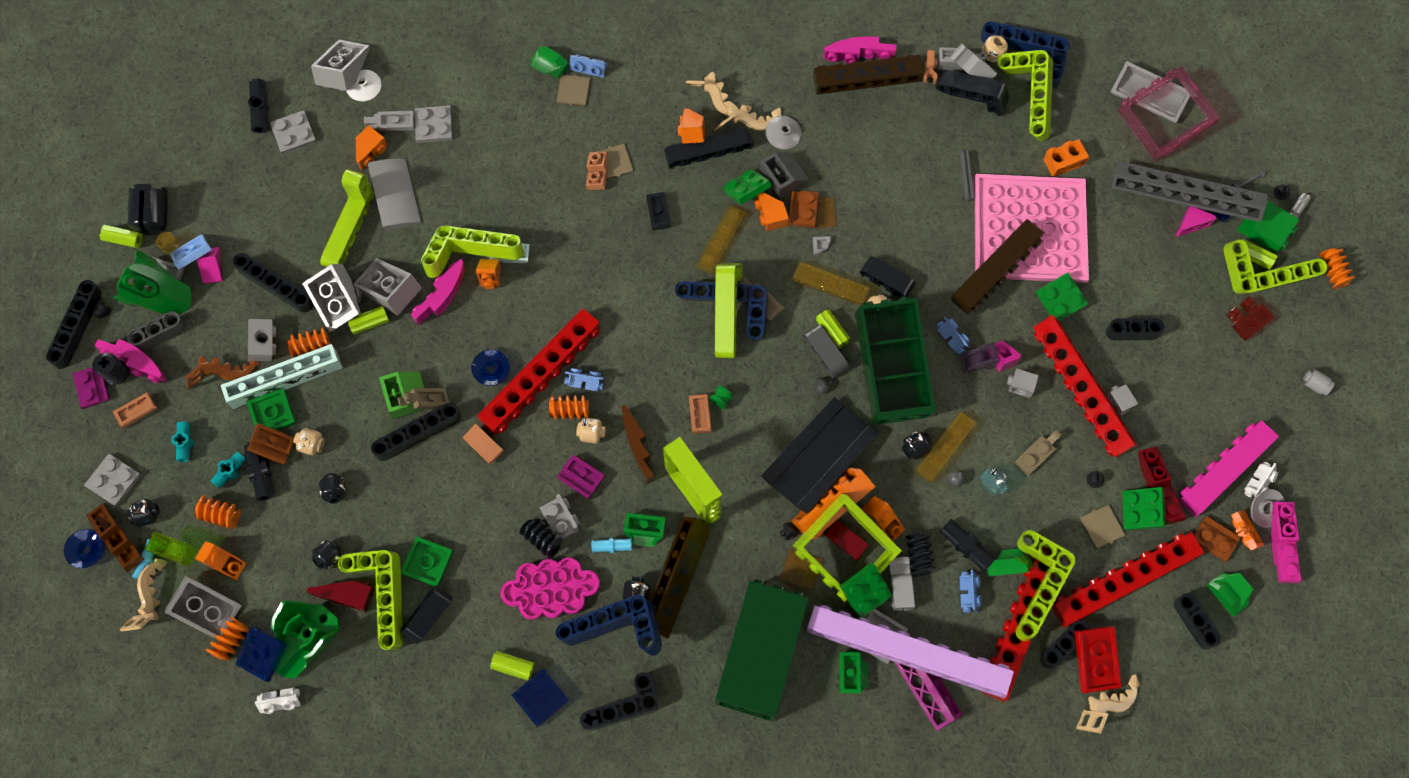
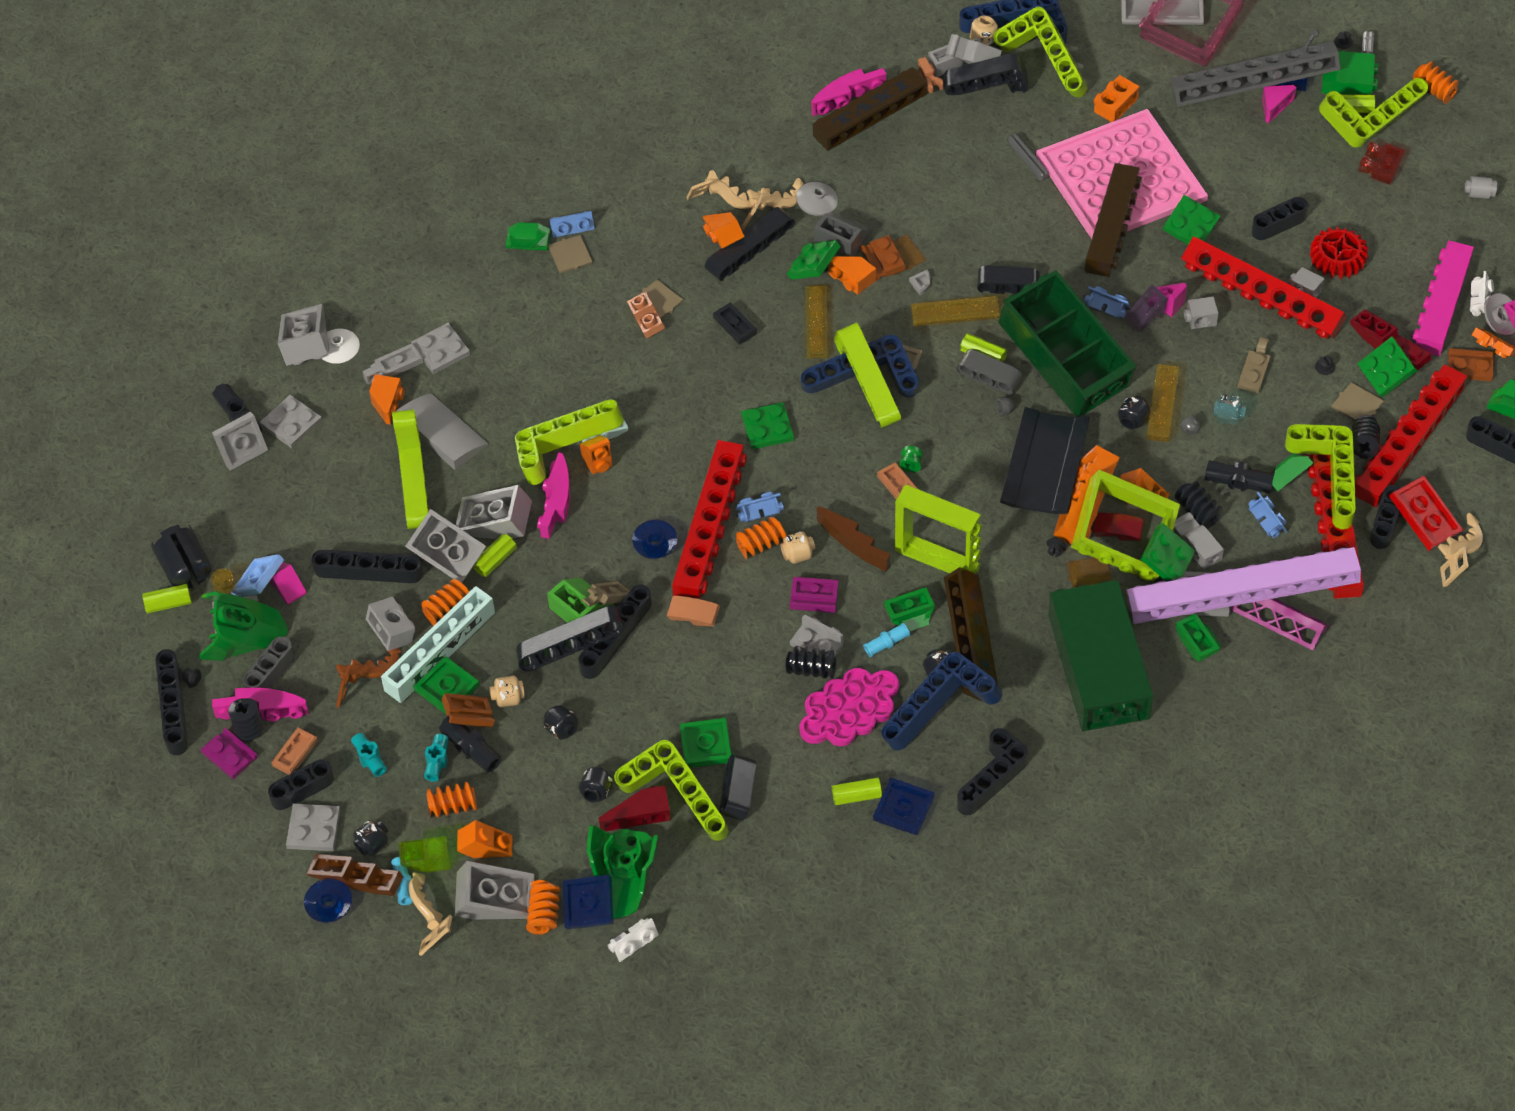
camera: 25 degrees left, 15 degrees down
(113, 438) = (306, 775): none -> black beam
(241, 133) = (240, 441): none -> light grey plate
(374, 423) = (569, 638): none -> black beam
(632, 311) = (767, 426): none -> green plate
(1088, 564) = (1365, 436): none -> black piece
(1178, 395) = (1350, 258): none -> red gear

